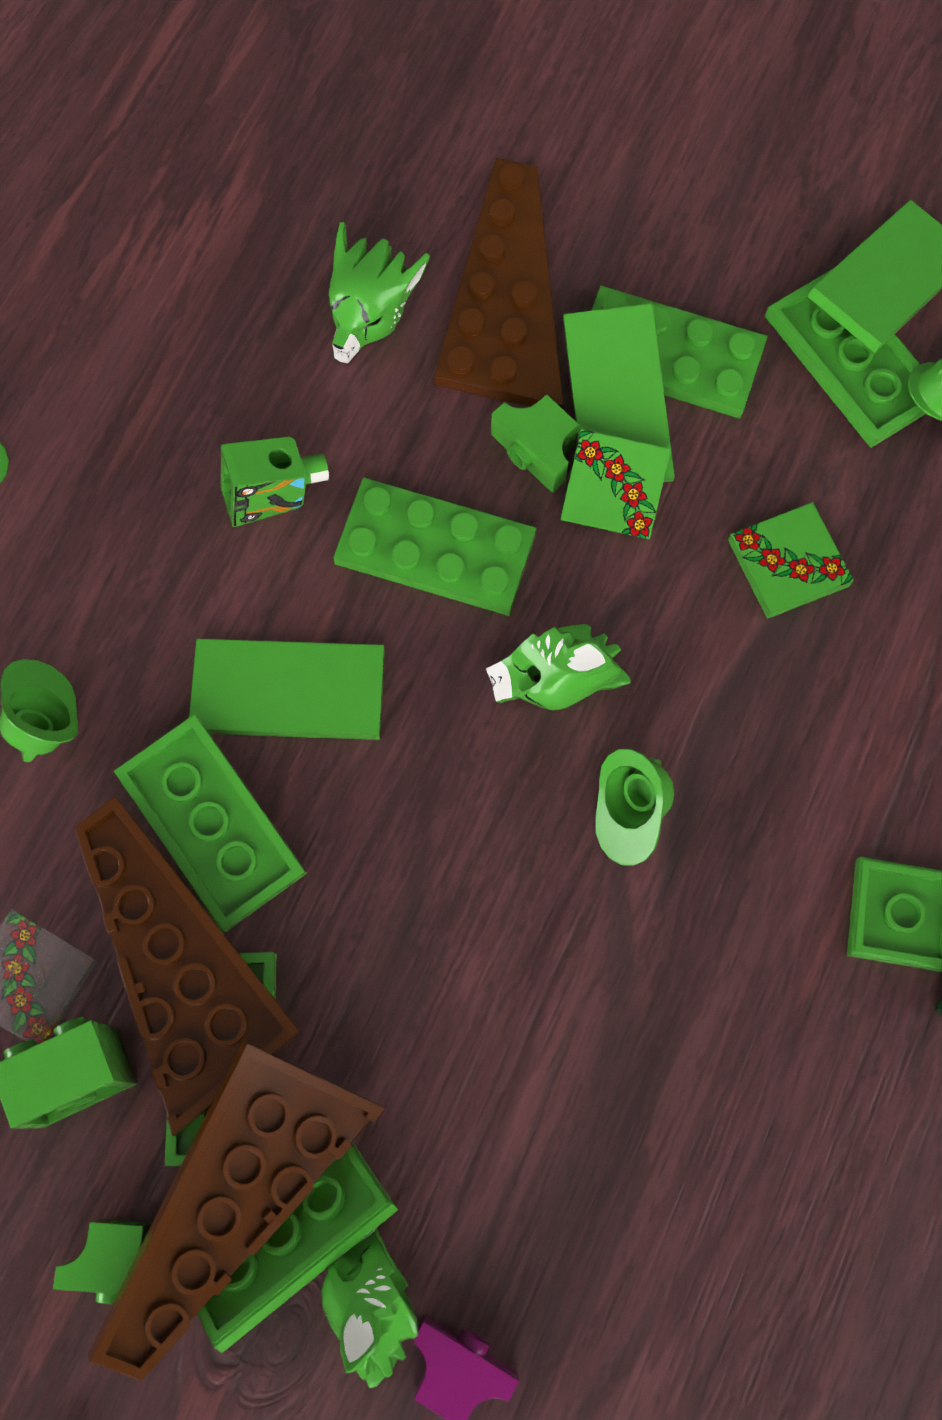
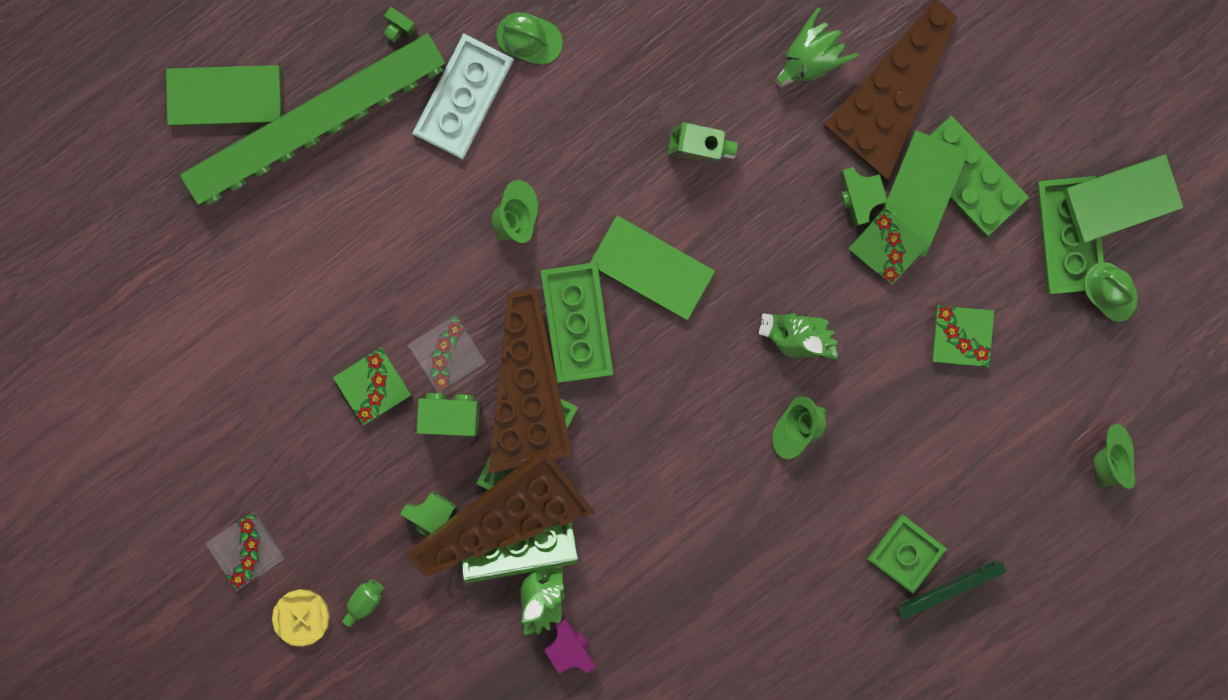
camera: 25 degrees right, 15 degrees up
(435, 546) = (772, 226): bright green plate -> none

